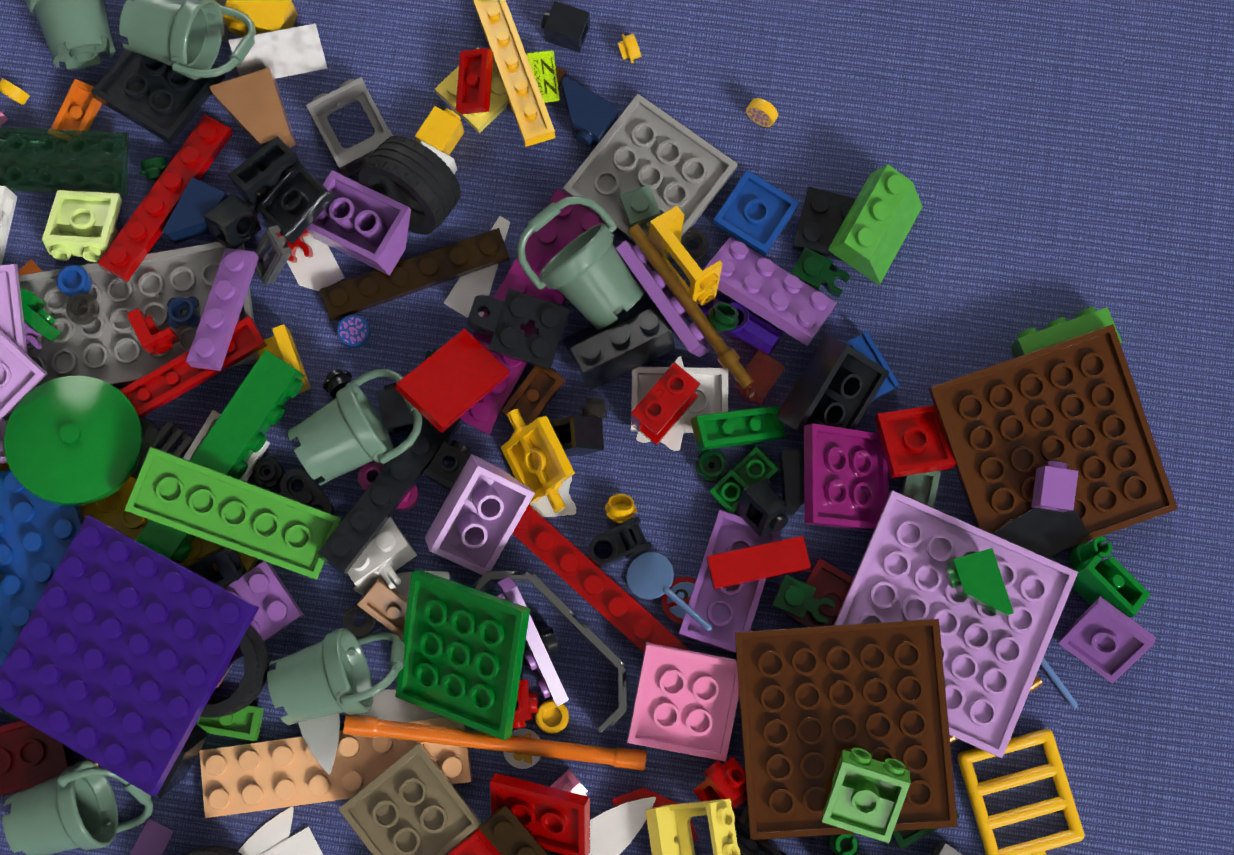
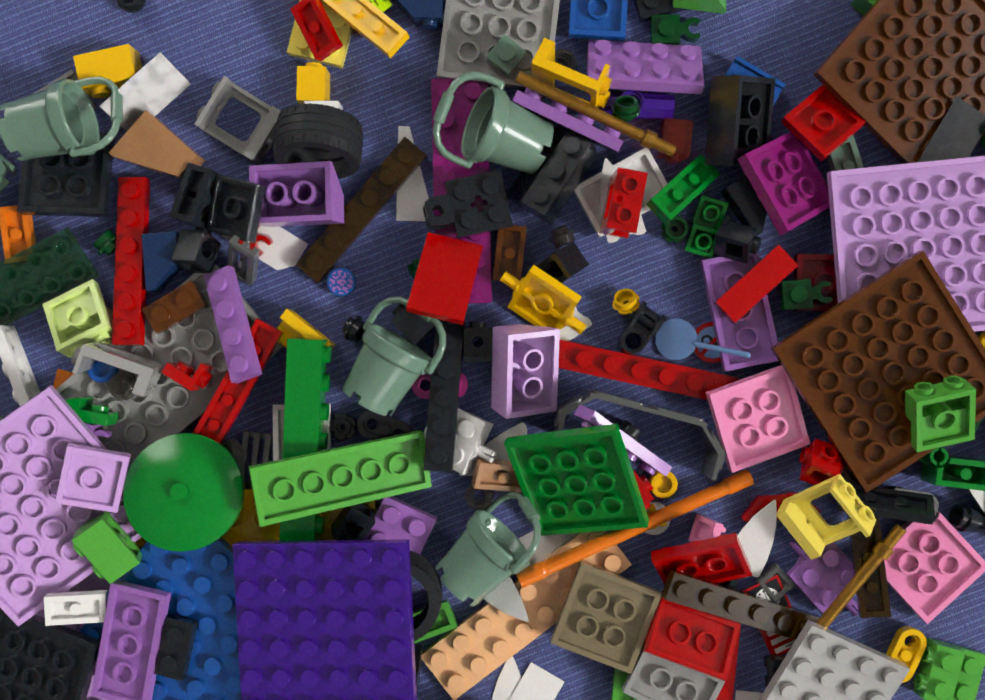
camera: 30 degrees left, 10 degrees up
(114, 307) = (147, 370): none -> light grey window
(176, 305) = (195, 340): dark blue plate -> none
(179, 263) = (175, 307): none -> reddish brown plate
(980, 581) = (938, 201): green slope -> none
(1055, 487) = (954, 97): medium lavender brick -> none

